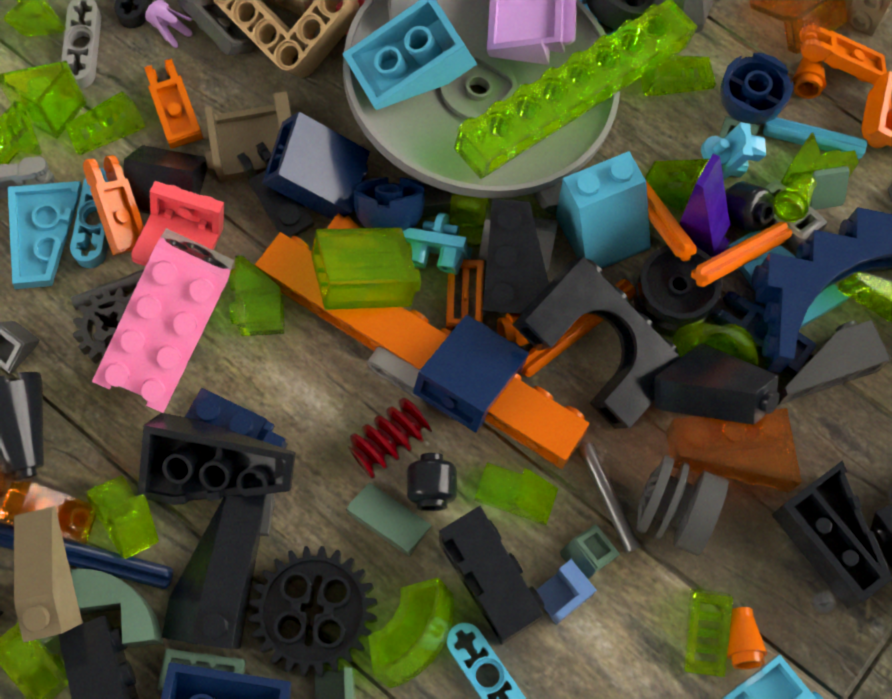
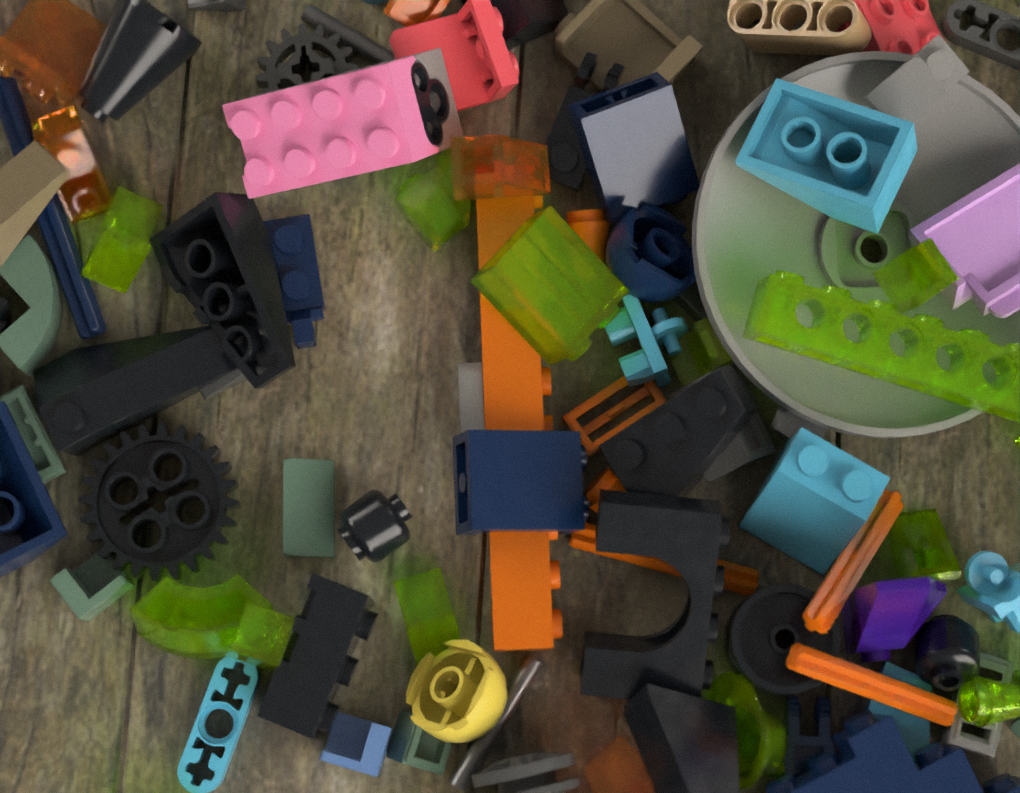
camera: 50 degrees right, 10 degrees up
(266, 247) = (498, 167): none -> clear orange slope
(388, 436) = (389, 446): dark red piece -> none
(455, 598) = (260, 636): none -> clear neon green panel
(517, 61) = (915, 276): none -> clear neon green panel
(576, 501) = (457, 692): none -> light yellow cylinder

